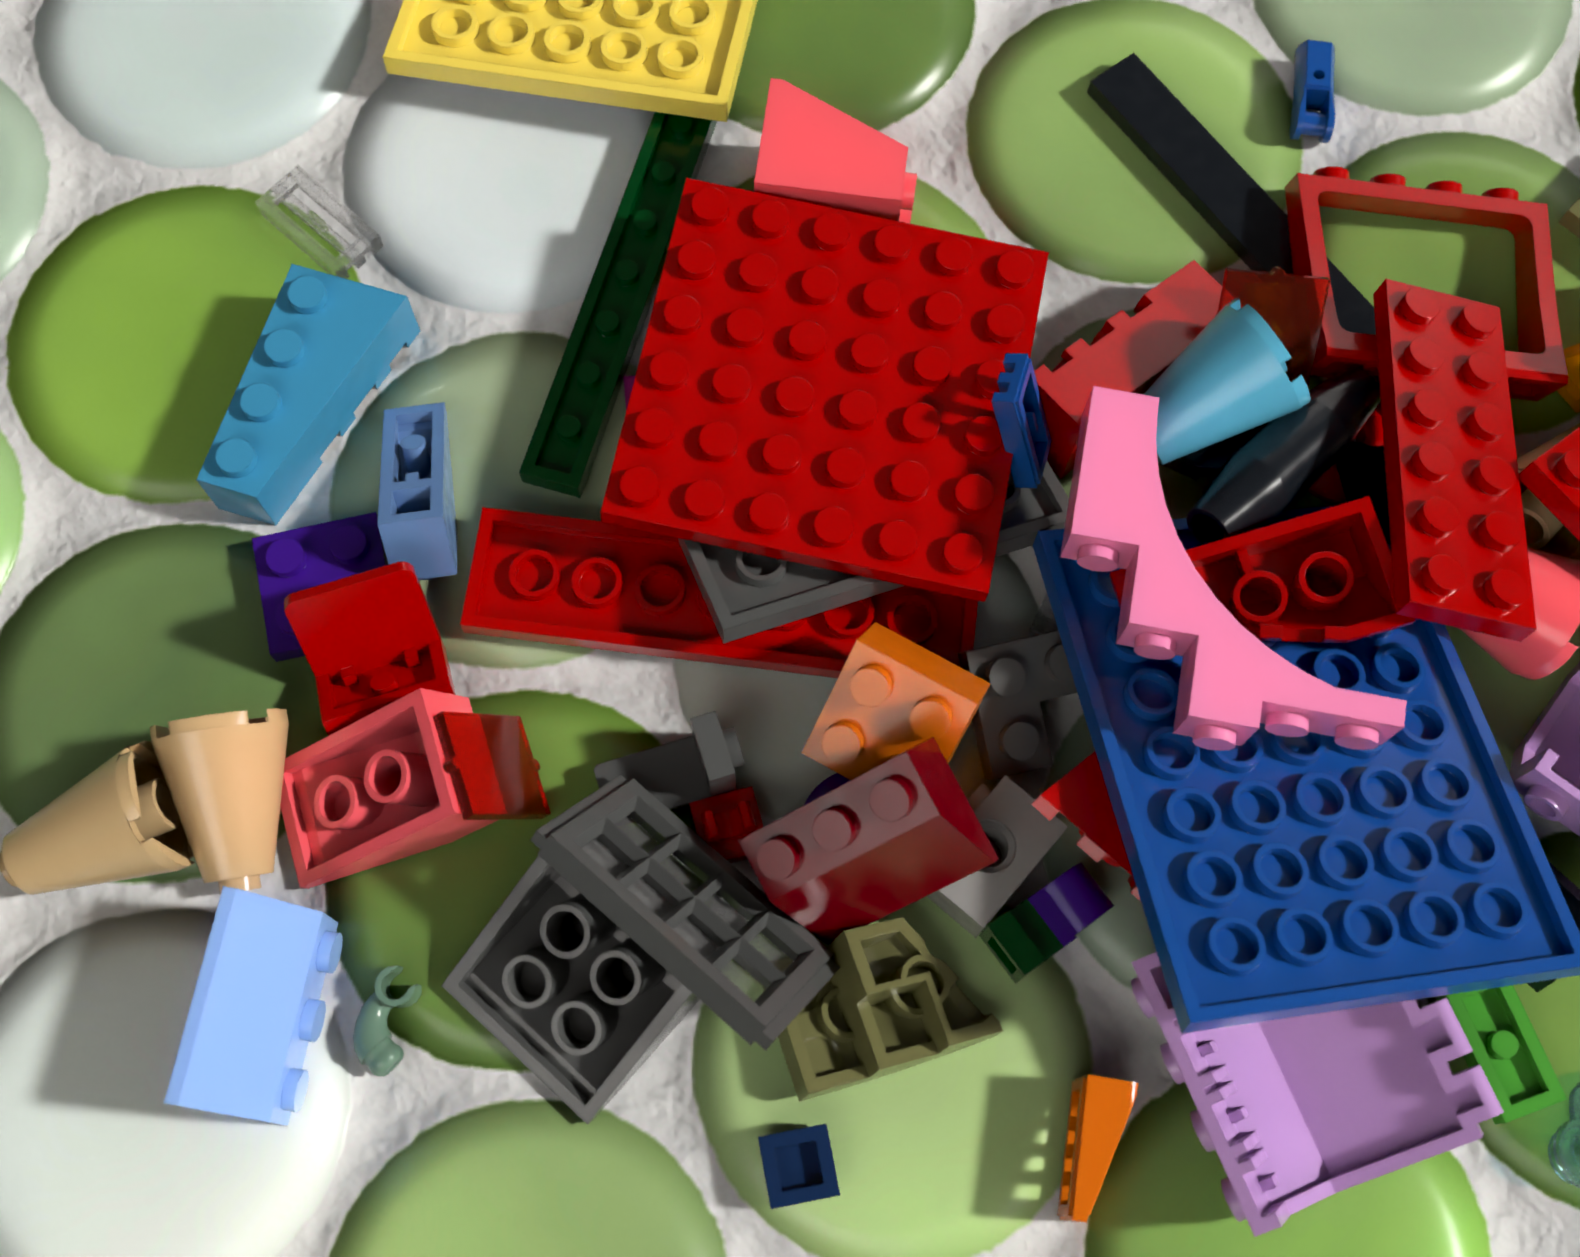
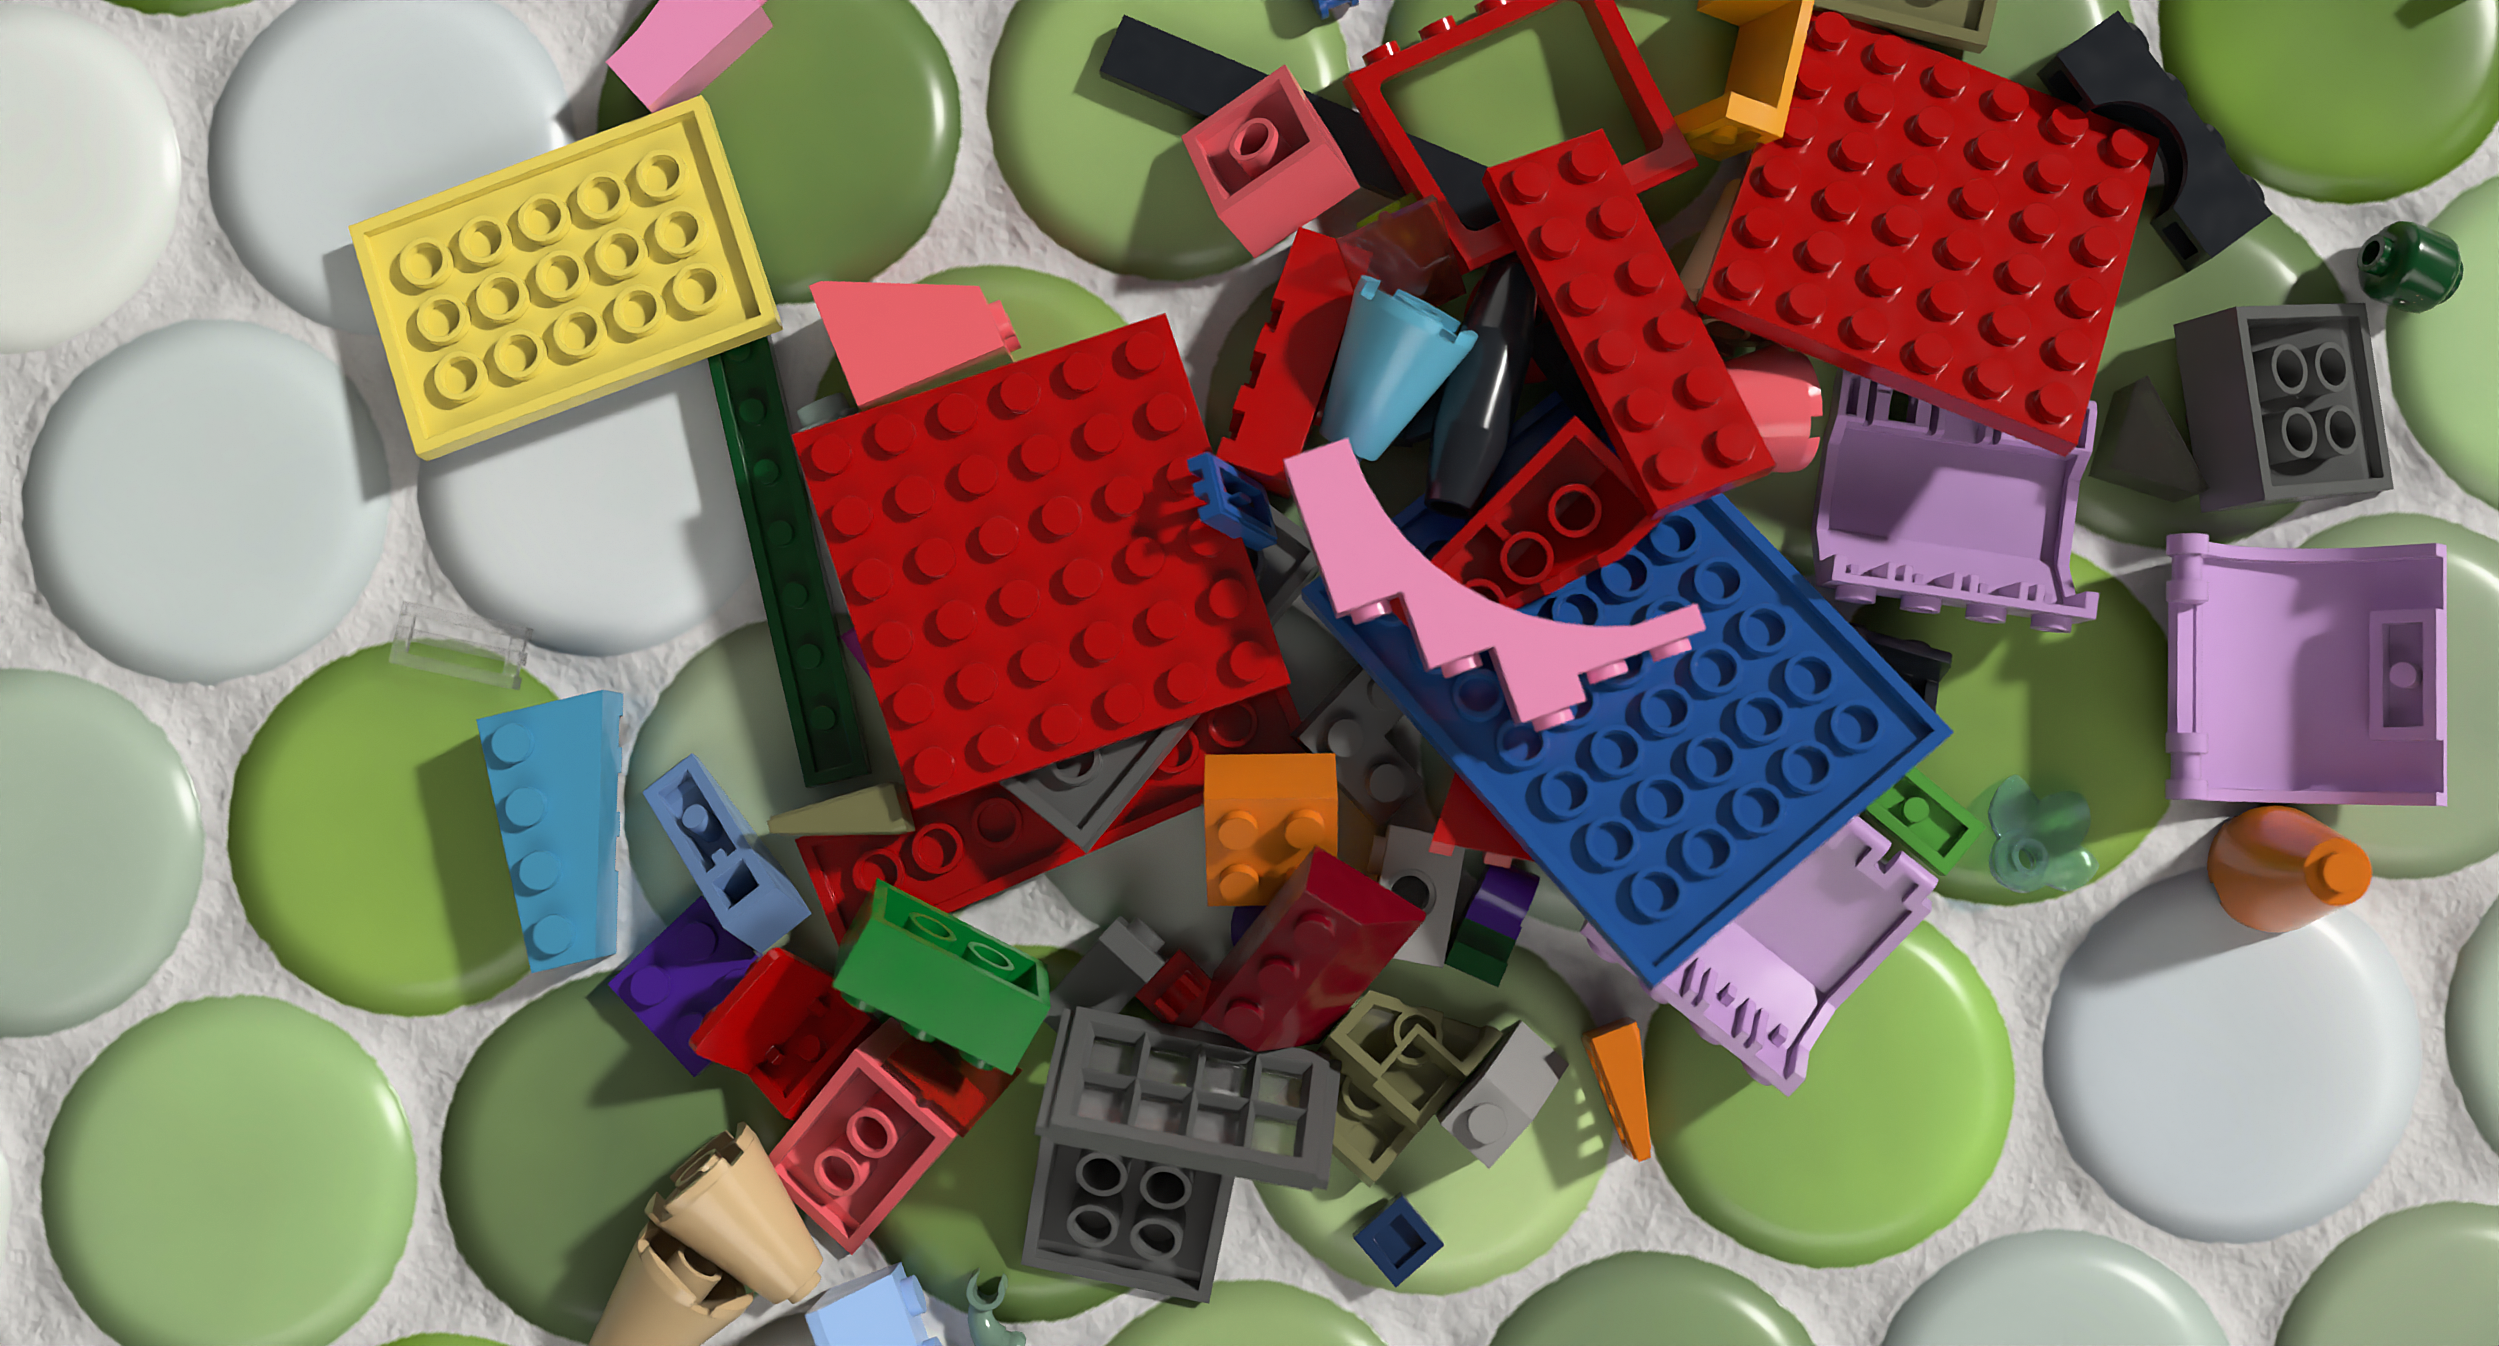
camera: 20 degrees left, 15 degrees up
(530, 672) = (942, 978): none -> green brick
(547, 503) = (864, 812): none -> olive slope
(971, 1085) = (1502, 1094): none -> light grey slope
(1196, 207) = (1269, 162): none -> coral slope

